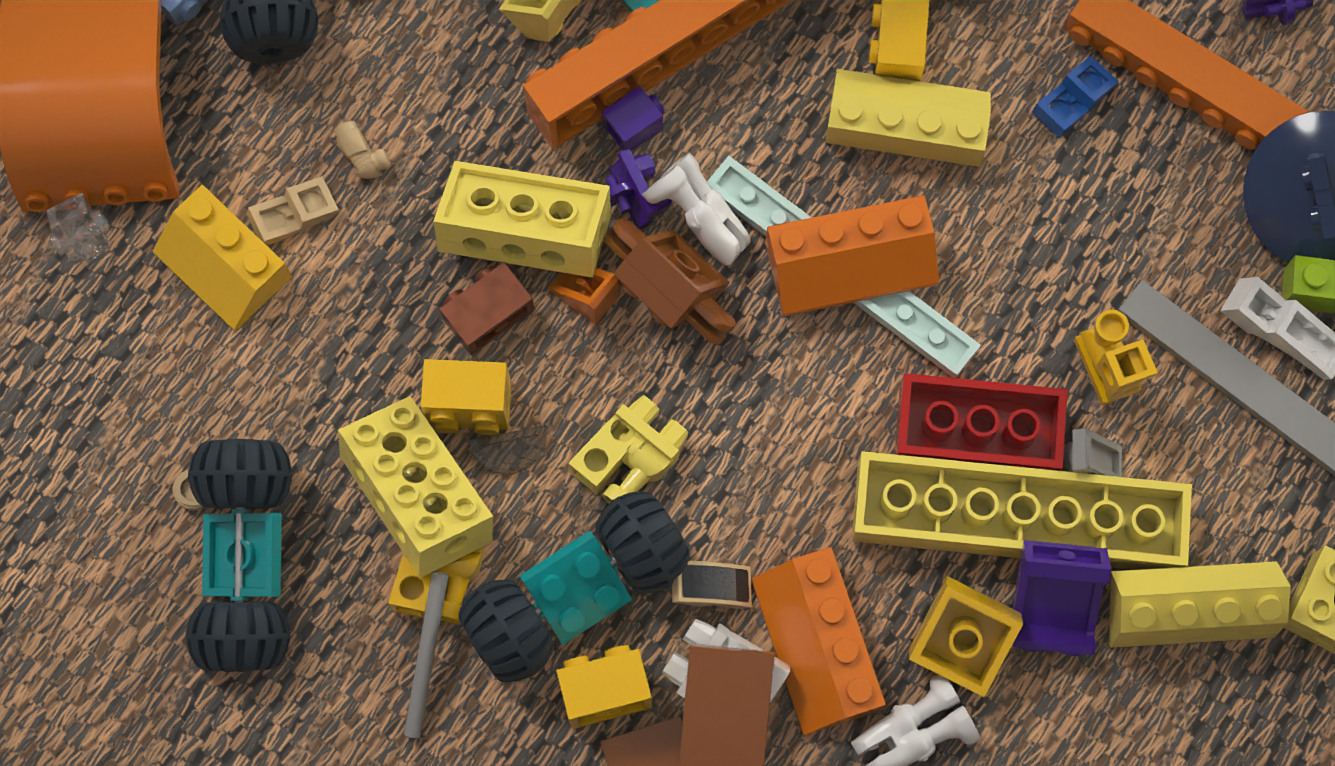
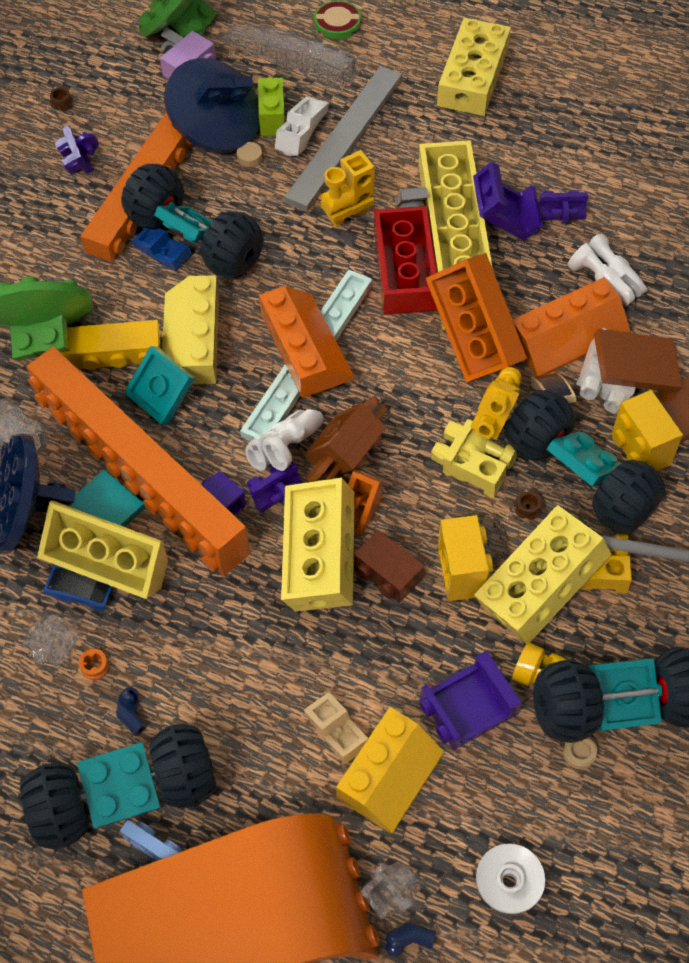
camera: 100 degrees left, 15 degrees down
(33, 243) = (407, 934): none -> dark blue arm
(49, 351) = (515, 862): none -> white dish
(284, 368) = (470, 702): none -> dark purple panel
(313, 452) = (531, 663): none -> yellow wheel
(355, 148) = (276, 688): tan arm -> none
(542, 500) = (531, 499): none -> reddish brown plate
(679, 484) = (497, 403): none -> yellow hips
(818, 59) = (159, 385): none -> teal plate
(833, 493) = (476, 317): none -> orange slope
(965, 636) = (545, 246): yellow brick -> none
(1047, 174) = (155, 201): none -> black plate
(1051, 691) = (563, 205): none -> dark purple hips
(1197, 604) = (491, 134): light yellow slope -> none
(1240, 244) = (249, 154): none -> tan tile

